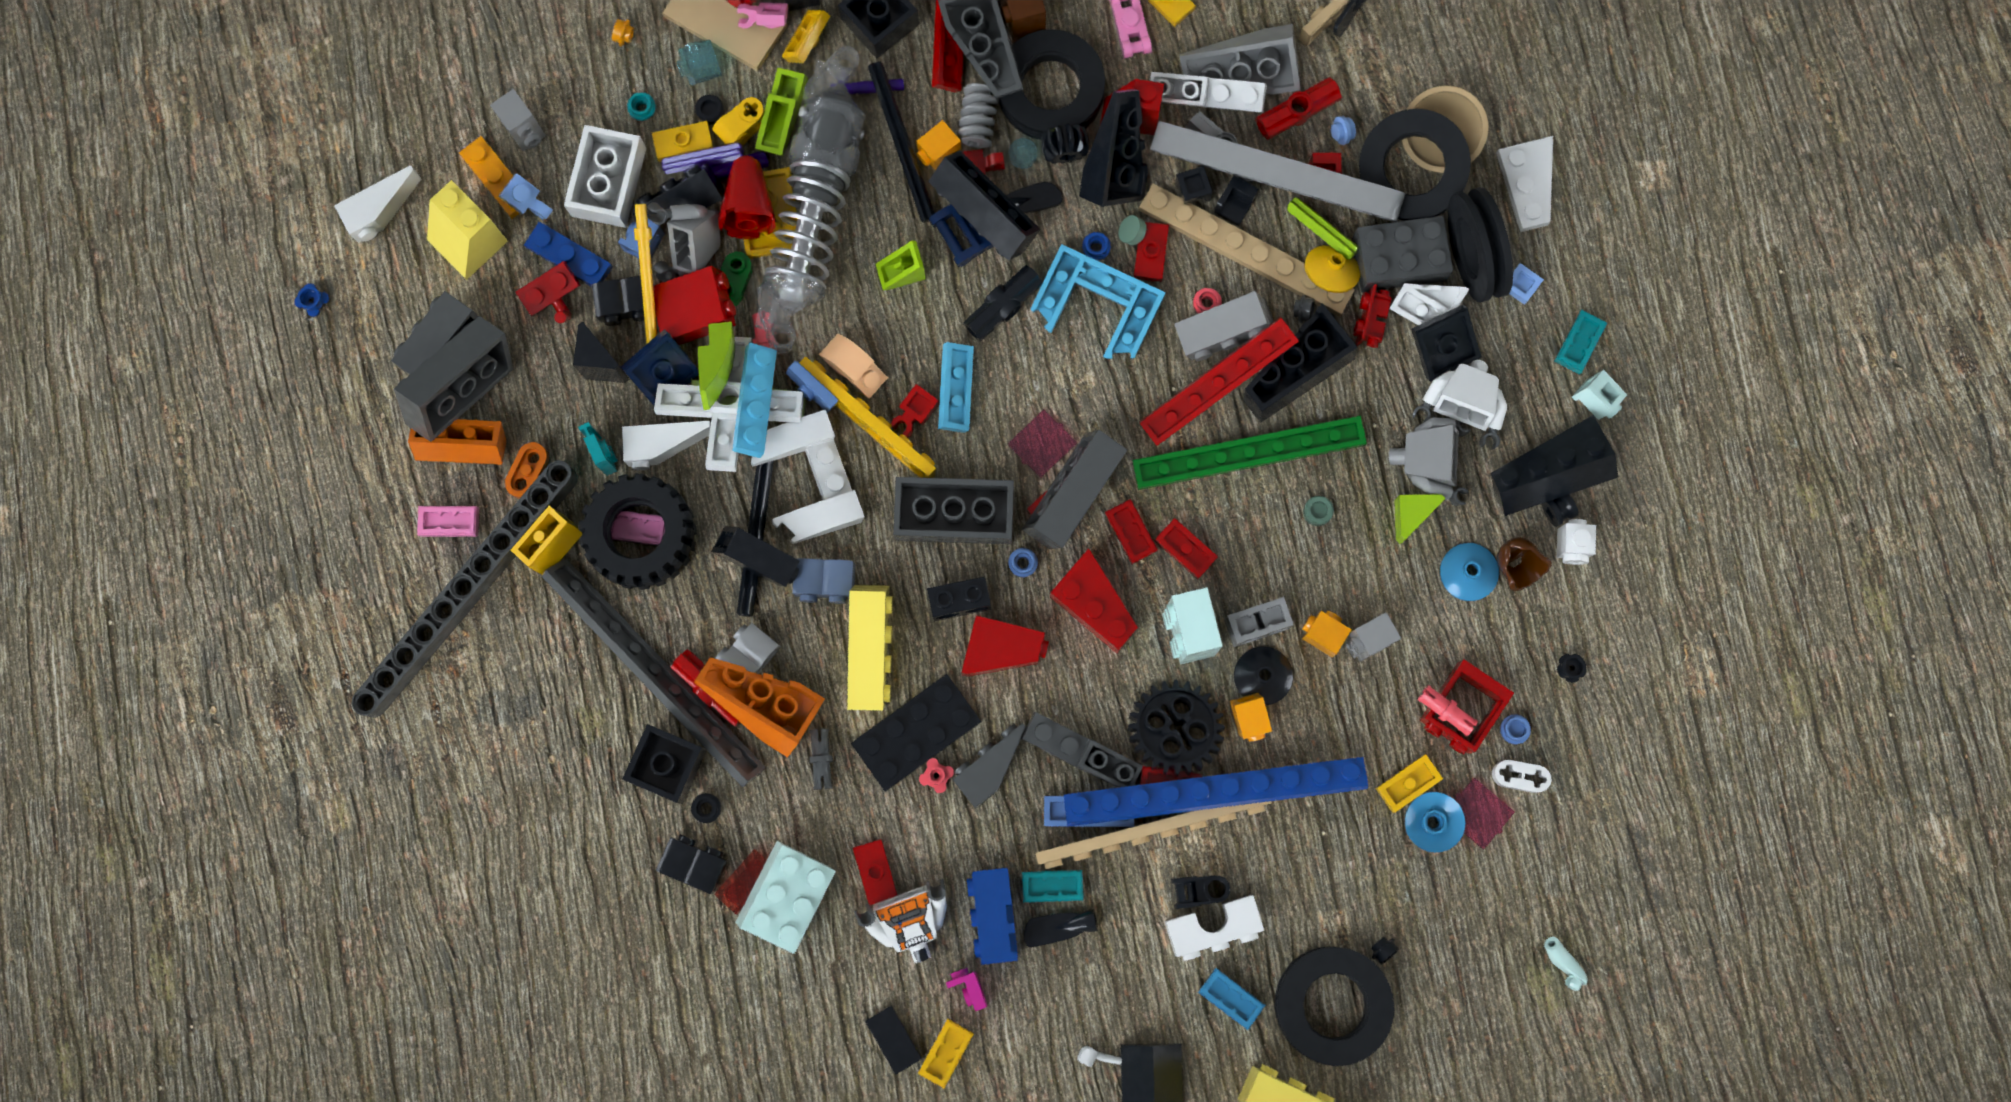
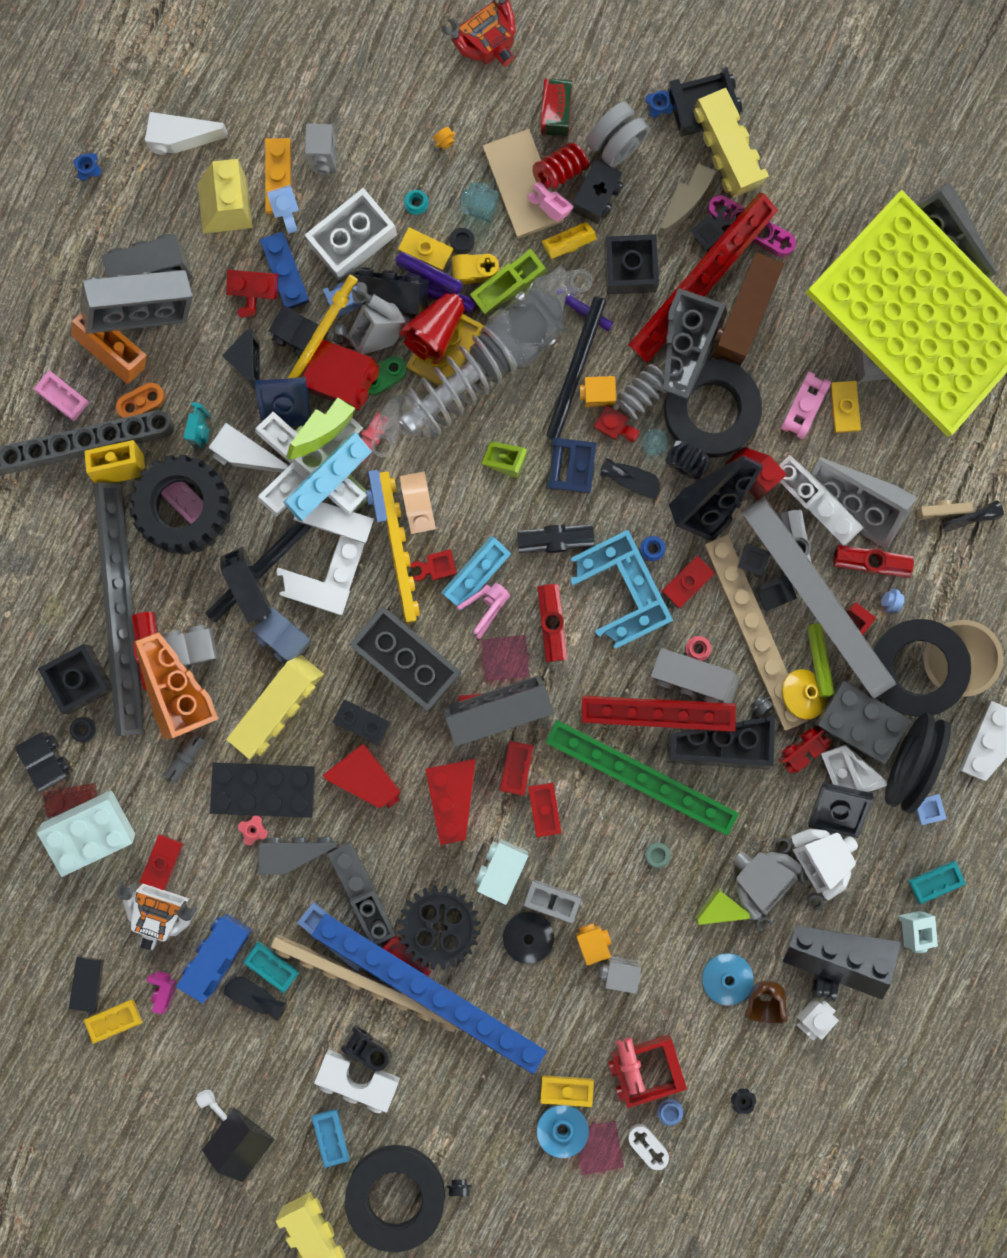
camera: 35 degrees right, 5 degrees up
(984, 205) = (594, 461): black brick -> none
(992, 398) = (495, 599): none -> bright pink plant
(1023, 553) = (418, 730): medium blue plate -> none
(1046, 365) = (549, 606): none -> red piece
(1132, 230) = (686, 557): sand green tile -> none
(1251, 717) = (495, 960): light orange brick -> none

